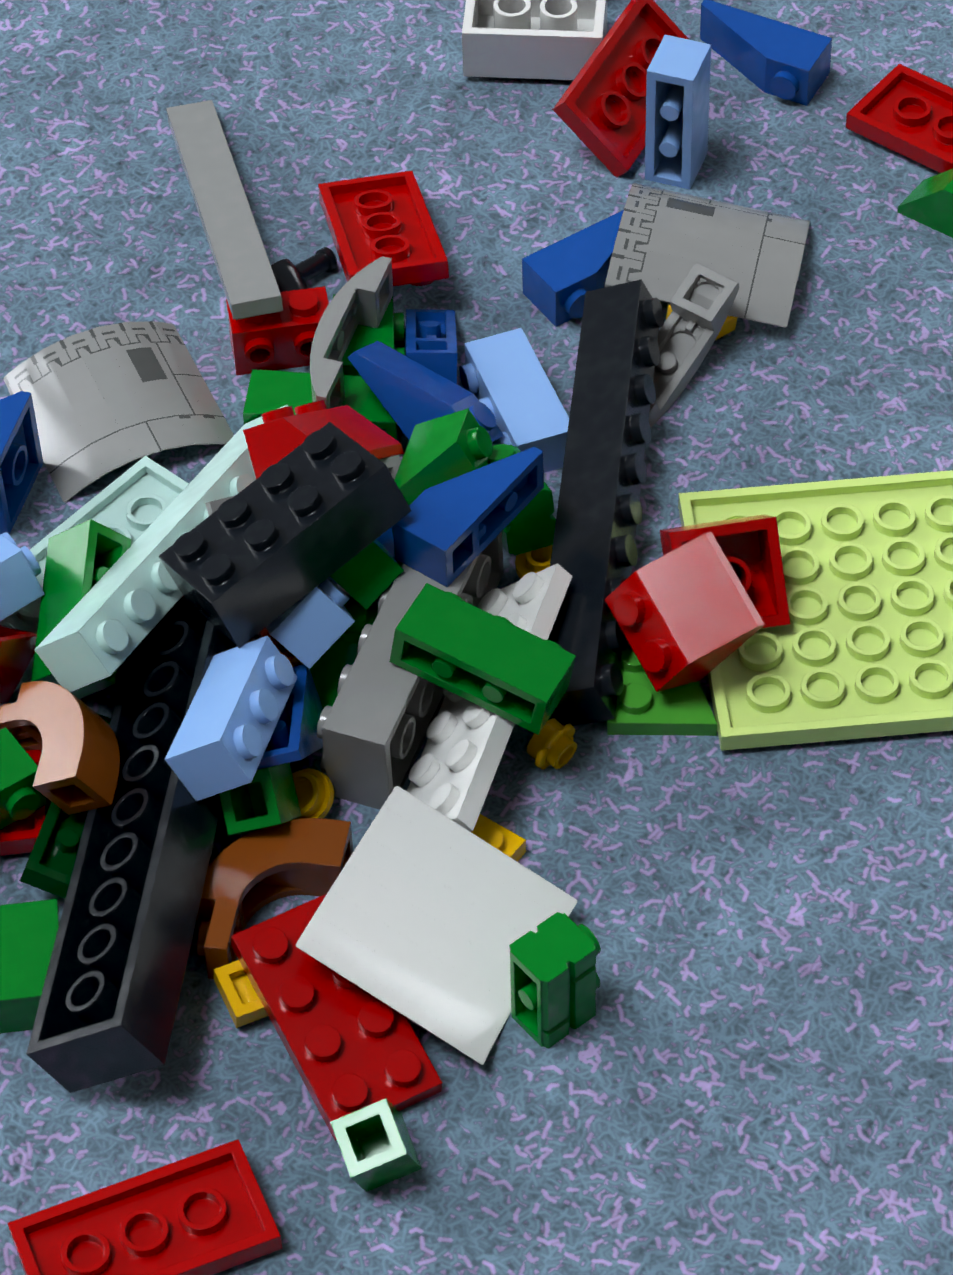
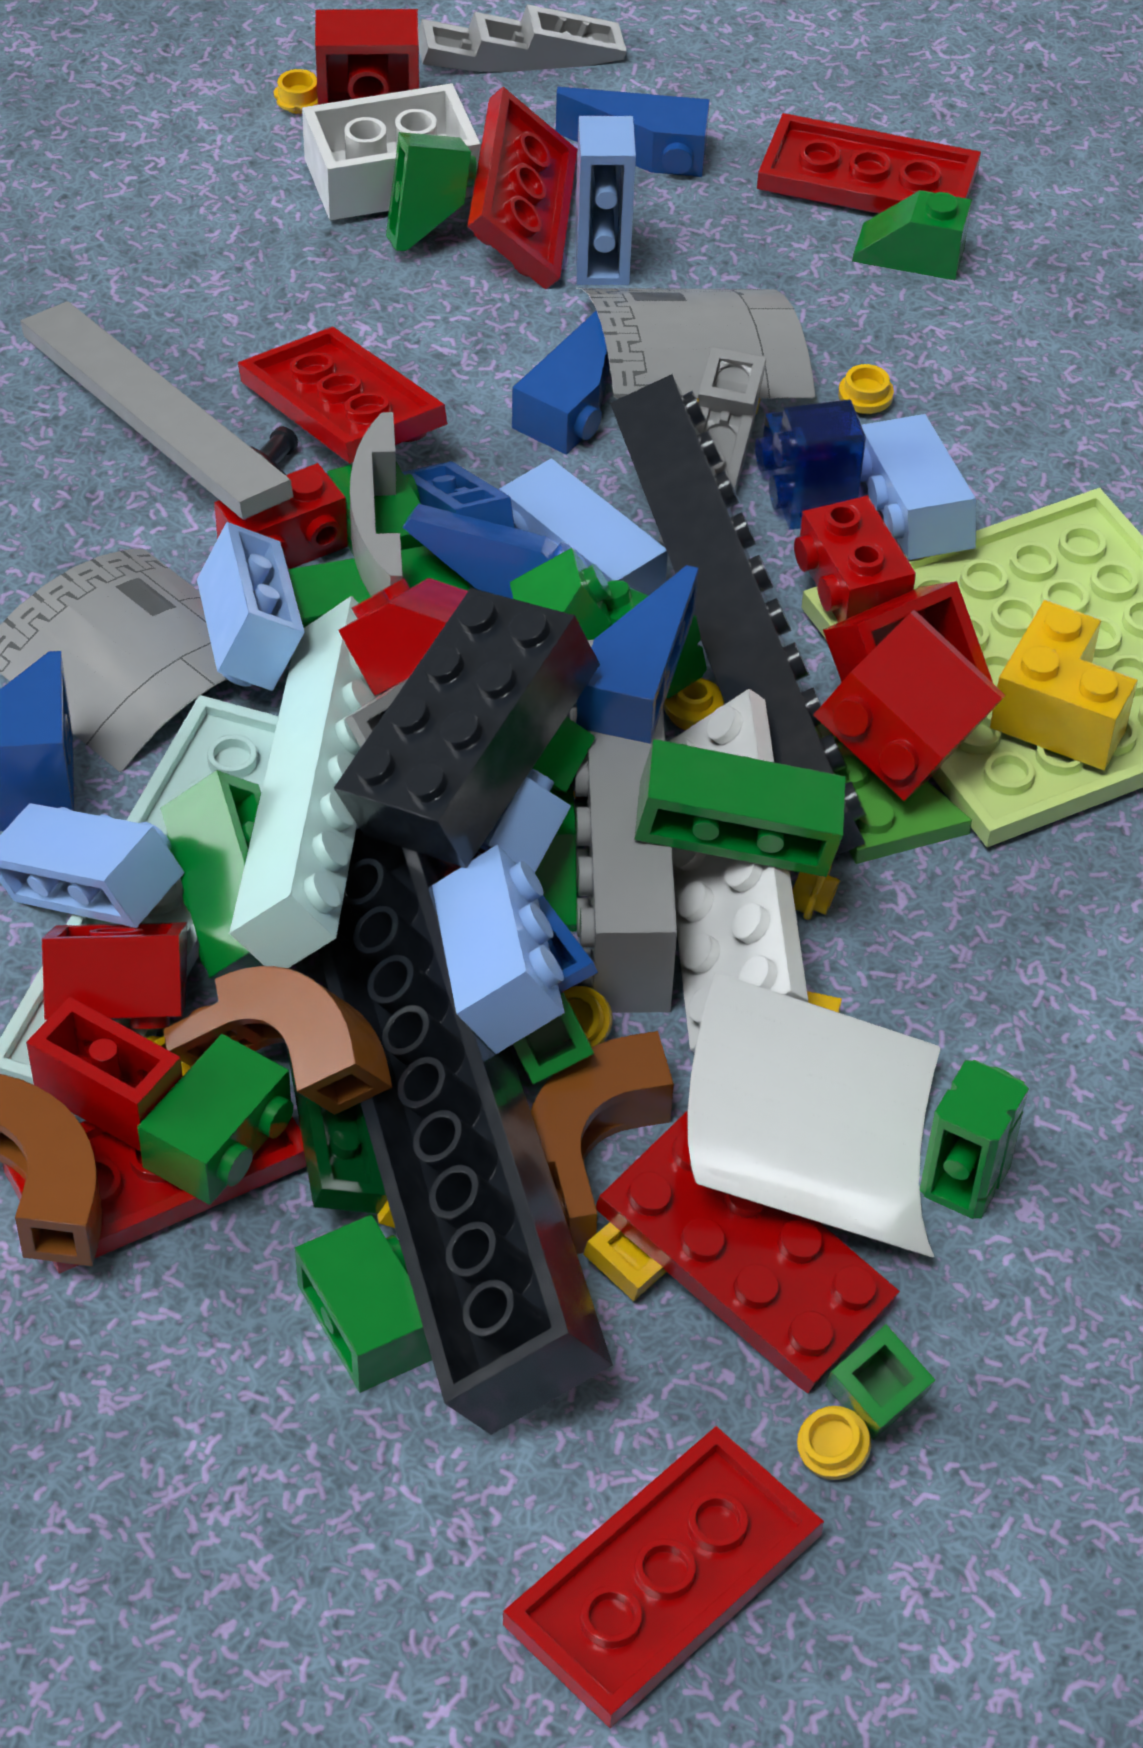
camera: 25 degrees left, 0 degrees up
(210, 393) = (249, 607): none -> light blue brick
(325, 1181) = (834, 1442): none -> yellow plate
(543, 63) = (427, 185): none -> green slope
(722, 473) = (852, 557): none -> red brick
(743, 386) = (811, 457): none -> clear blue brick
(818, 427) = (918, 487): none -> light blue brick
(834, 634) = (1059, 694): none -> yellow brick
(838, 331) = (867, 388): none -> yellow plate

